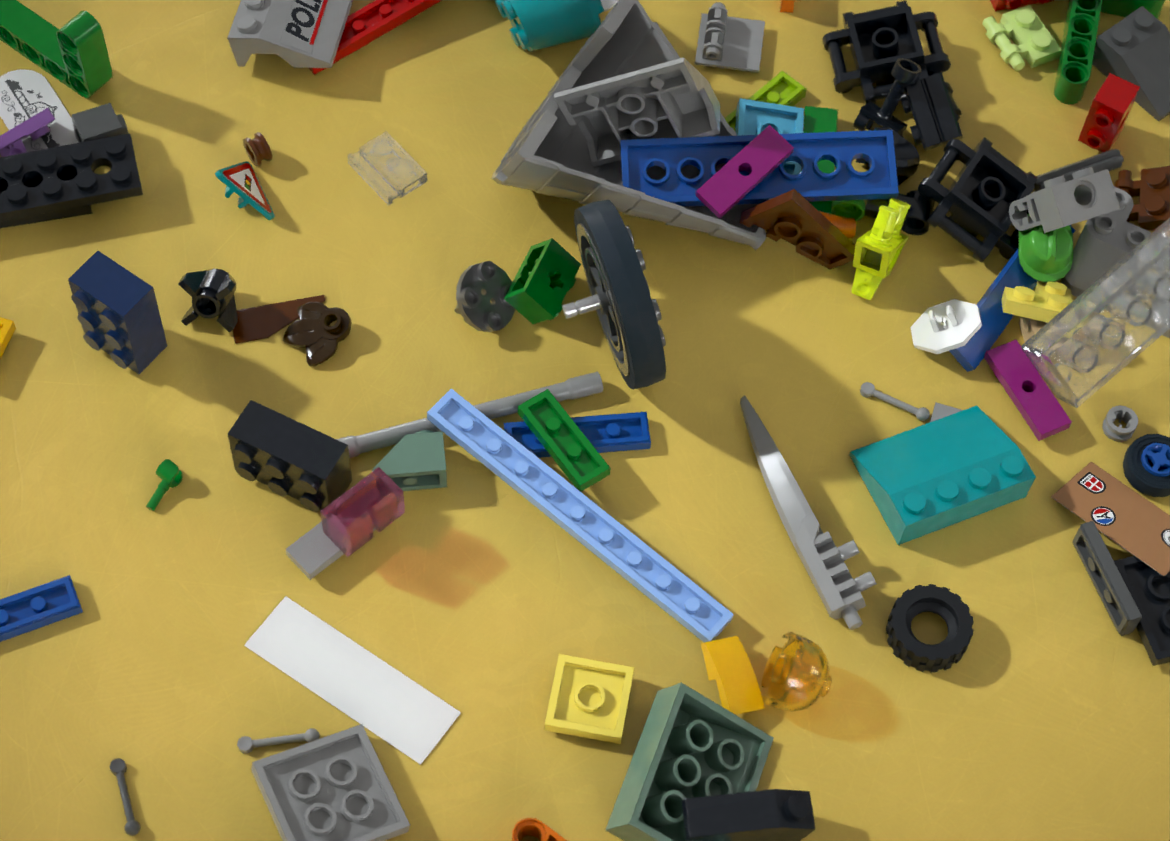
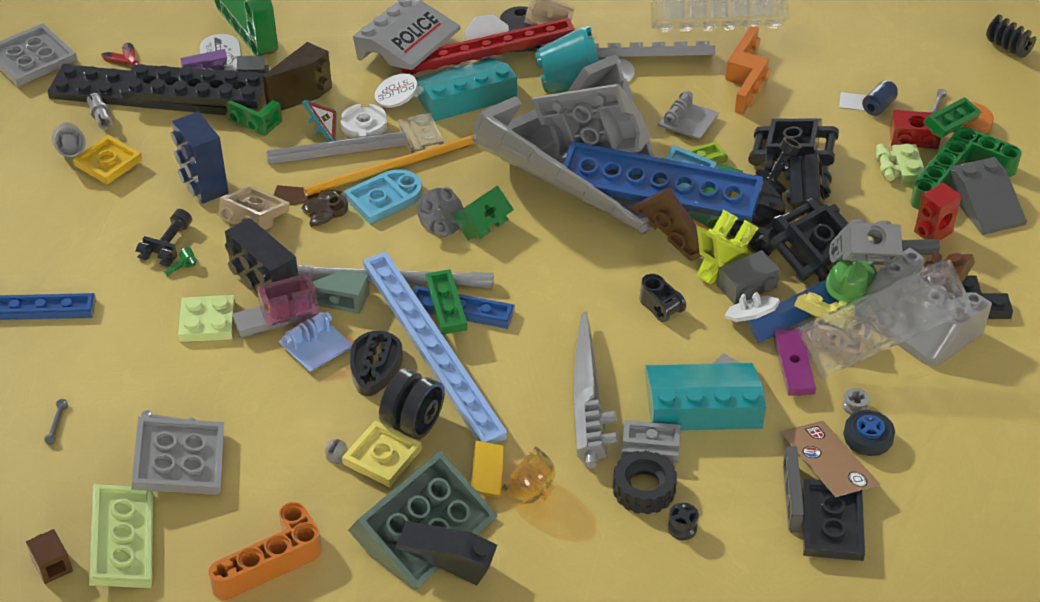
camera: 25 degrees right, 15 degrees down
(127, 416) = (167, 251): none -> black bar
(149, 217) = (259, 122): none -> green bracket
(182, 128) = (299, 77): none -> dark brown slope
(211, 297) = (267, 169): black brick -> none
(222, 367) = (252, 204): none -> tan plate
(247, 563) = (206, 318): none -> yellowish green plate
(257, 149) = (342, 102): reddish brown bush -> none
(285, 225) = (336, 147): none -> light grey axle
(306, 188) = (363, 121): none -> white plate
(323, 108) = (396, 90): none -> white piece
(353, 680) = (237, 402): white sticker -> none
(386, 287) = (384, 194): none -> medium azure tile
(409, 72) = (466, 88): none -> teal slope
(416, 556) = (315, 342): none -> light blue hinge
(417, 196) = (387, 166): none -> light orange piece
(524, 551) = (383, 370): none -> black piece
(534, 716) = (340, 449): none -> light grey hinge
(602, 617) = (411, 403): none -> black wheel
(619, 294) = (516, 217): black wheel -> none
(757, 159) = (645, 176): magenta tile -> none
(827, 345) = (659, 297): none -> black piece
(868, 390) = (679, 335): light grey hinge -> none
(910, 563) = (653, 438): none -> light grey plate
(919, 278) = (748, 276): none -> dark grey brick
(999, 660) = (688, 516): none -> black wheel

